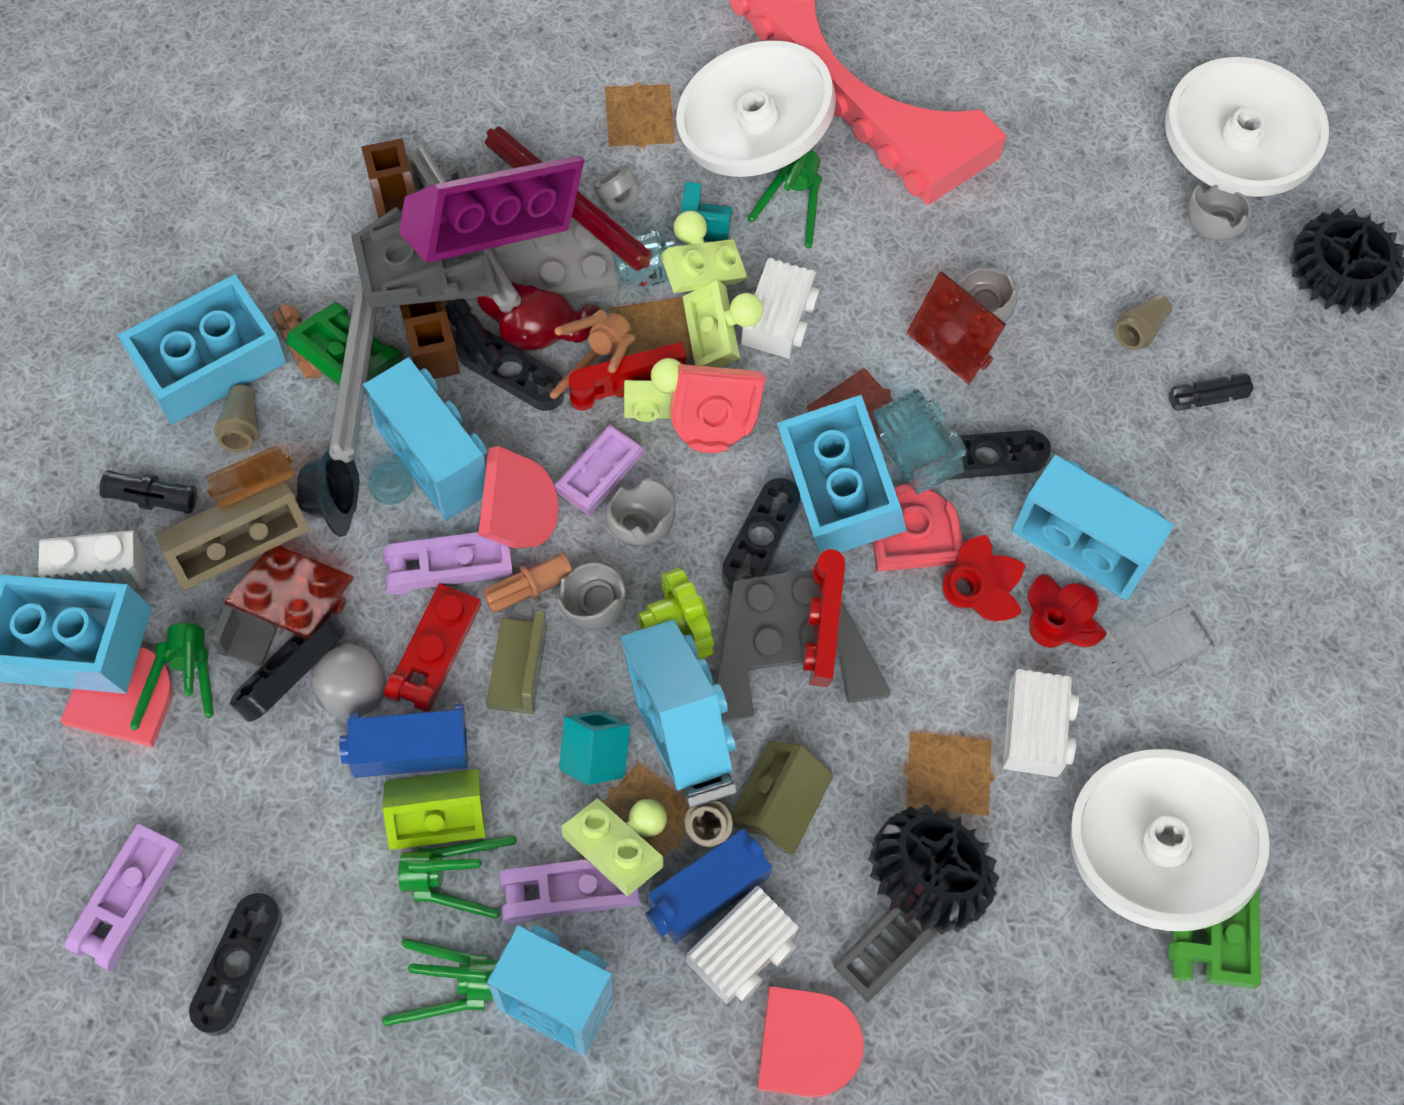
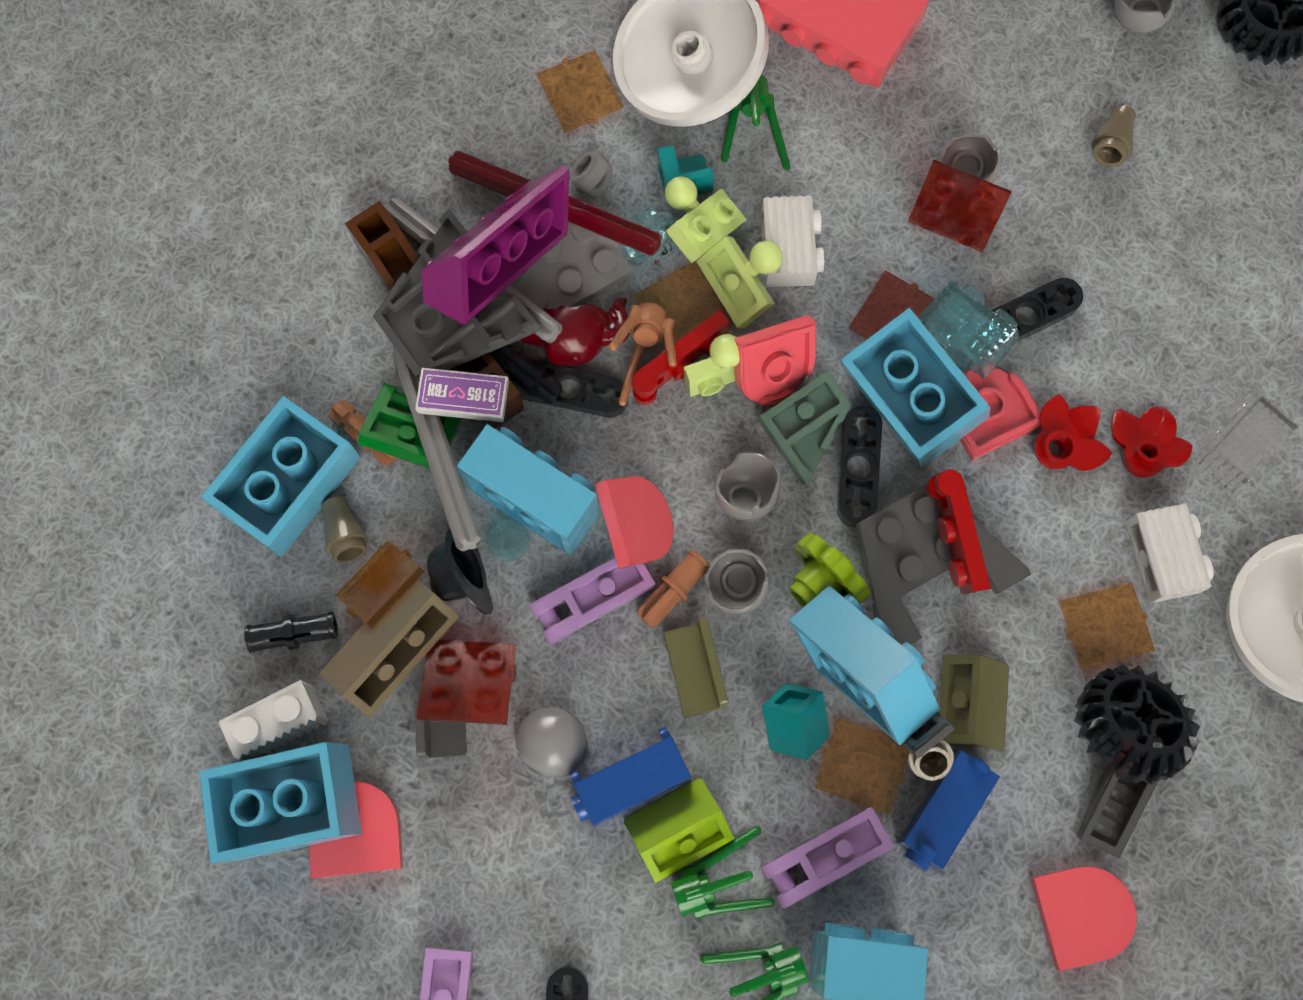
camera: 15 degrees left, 10 degrees up
(185, 653) = (396, 772): green plant -> none
(285, 669) = (485, 774): black beam -> none
(399, 327) = (462, 395): none -> tile
(433, 647) = (613, 680): red plate -> none
(599, 469) = (691, 457): lavender plate -> none
(616, 845) = (854, 805): yellowish green plate -> none
(725, 477) = (806, 424): none -> sand green wing
(743, 945) = (999, 852): white brick -> none
(1091, 526) = (1154, 355): medium azure brick -> none
(1211, 391) = (1197, 182): black axle -> none

